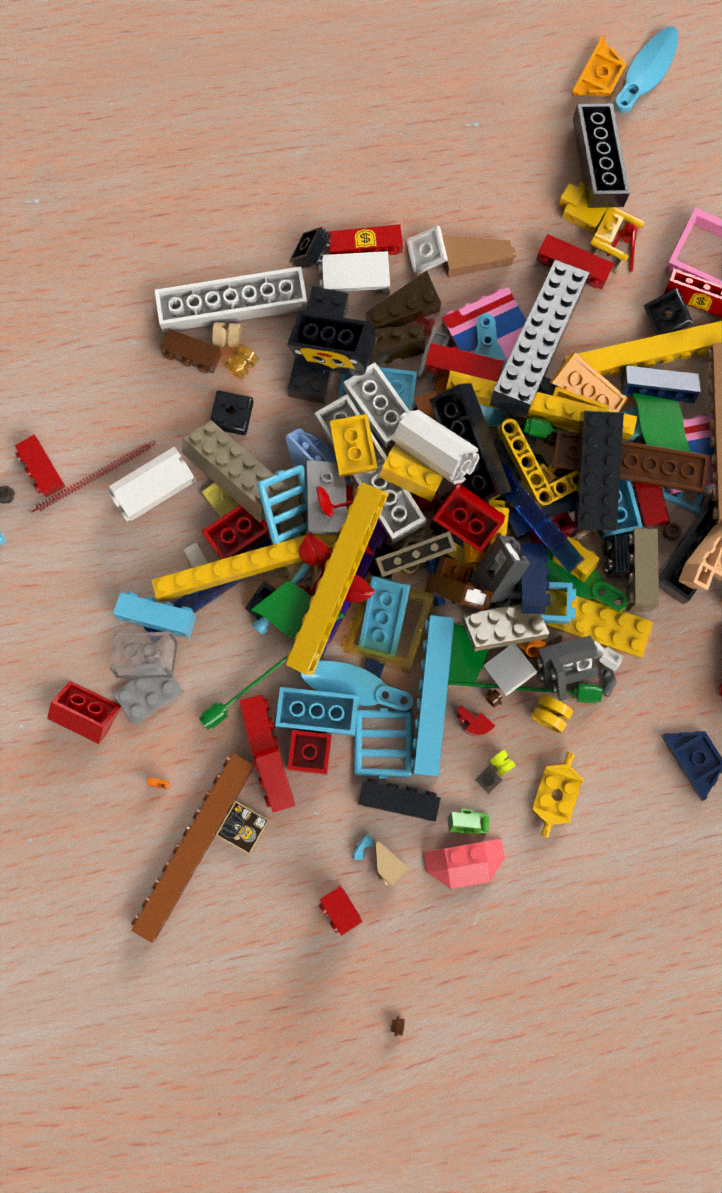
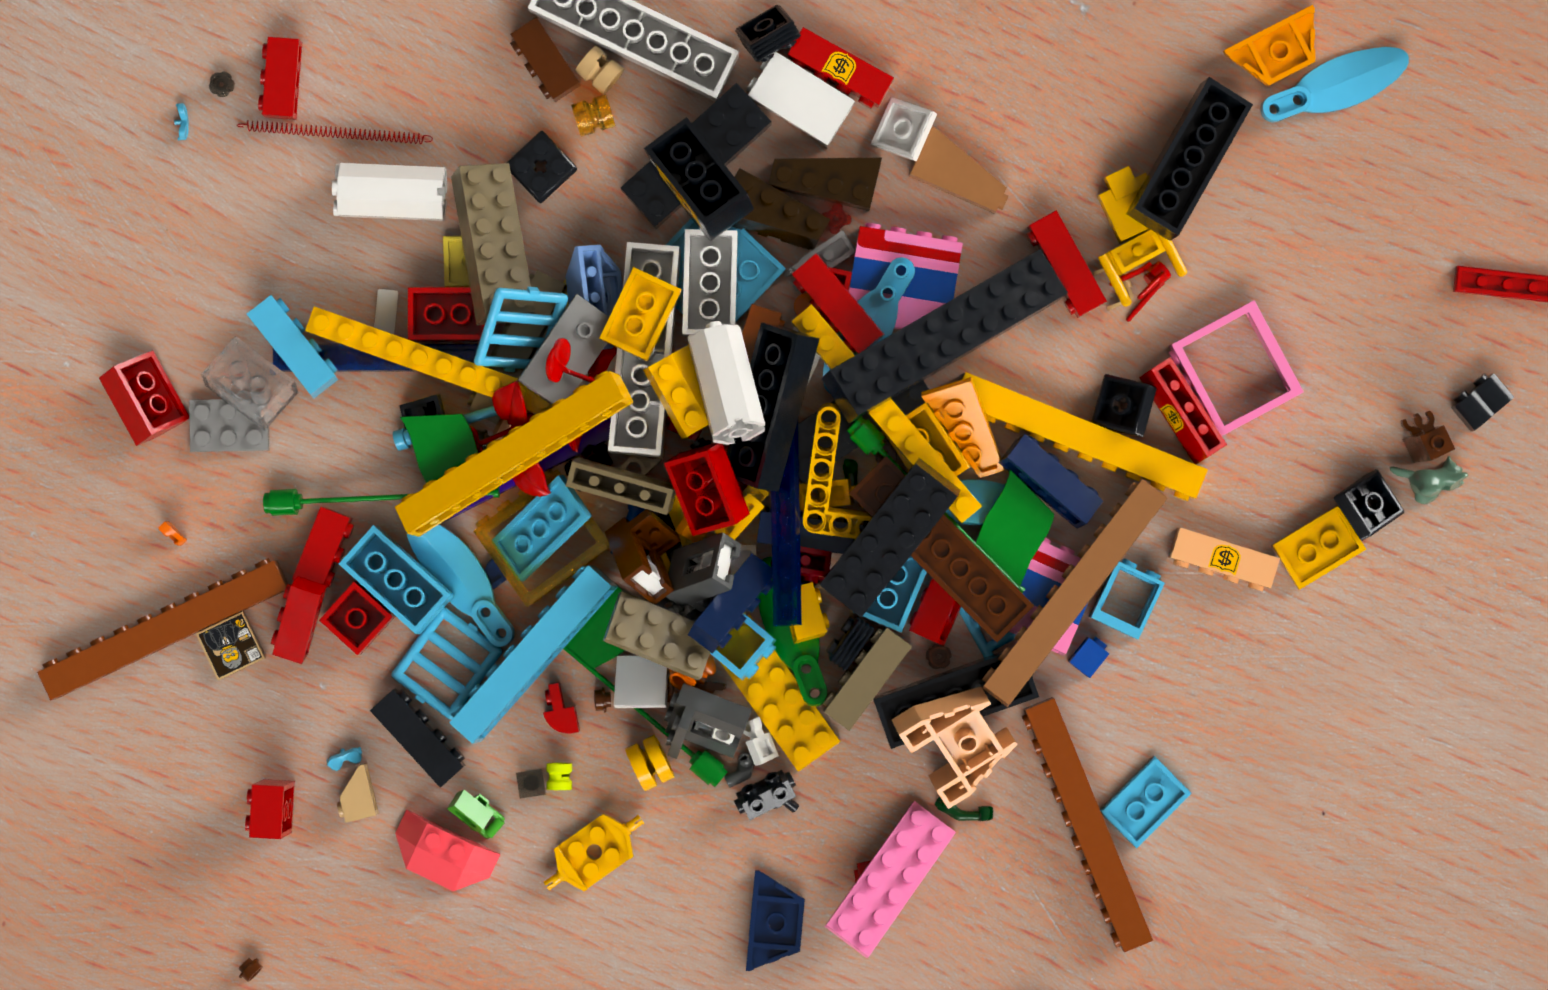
camera: 35 degrees right, 10 degrees up
(635, 683) = (767, 794): none -> black brick

